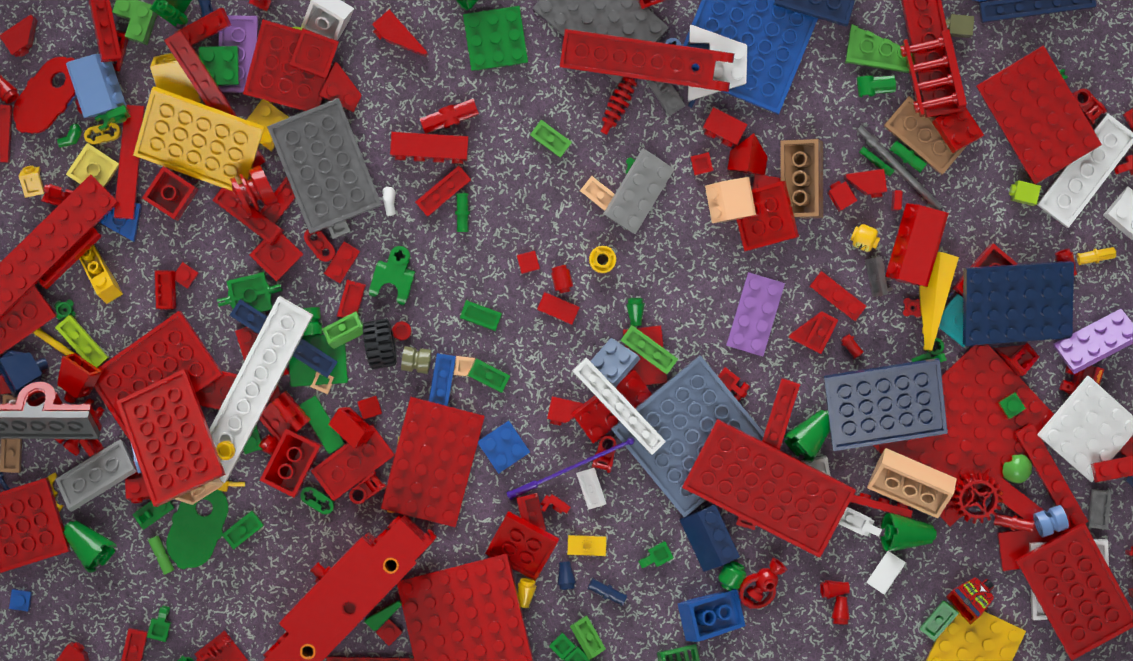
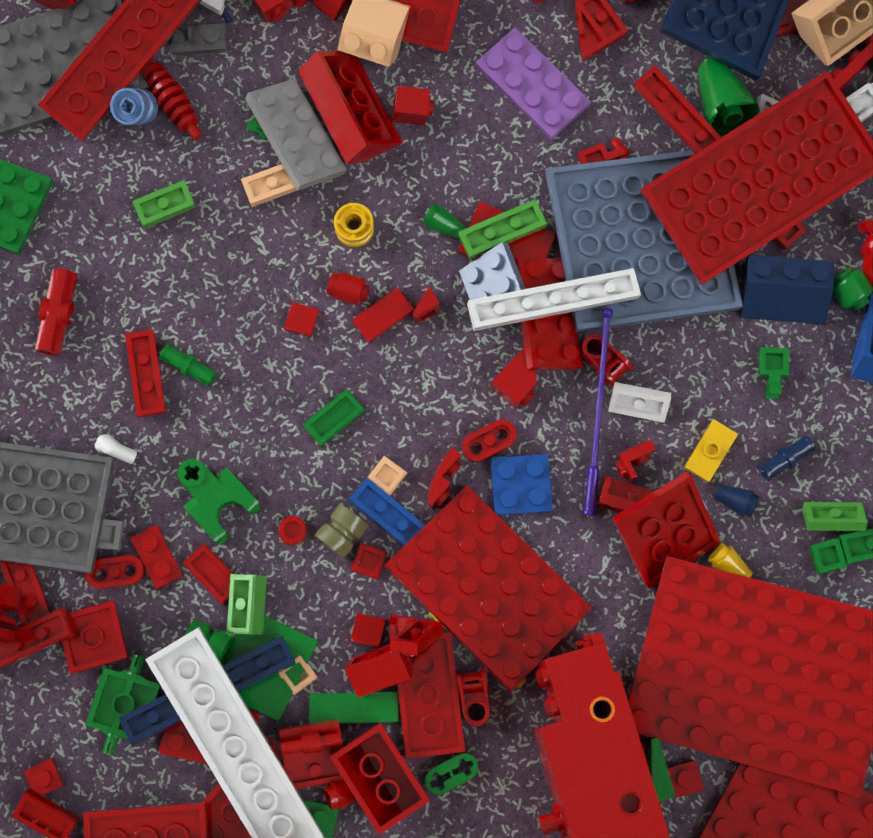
camera: 55 degrees left, 10 degrees down
(379, 344) = (291, 563): black tyre -> none
(379, 434) = (412, 634): none -> red wing
(409, 385) = (369, 561): none -> red tile
(429, 147) = (78, 358): red brick -> none
(474, 401) = (439, 487): none -> red slope
(488, 375) = (417, 450): green plate -> none
(518, 414) = (488, 441): none -> red plate
(577, 332) = (427, 307): none -> red slope
(598, 85) = (134, 106): none -> medium blue wheel
(675, 213) = (349, 106): none -> red slope
(697, 250) = (412, 105): none -> red brick
(701, 164) = (307, 42): red plate -> none

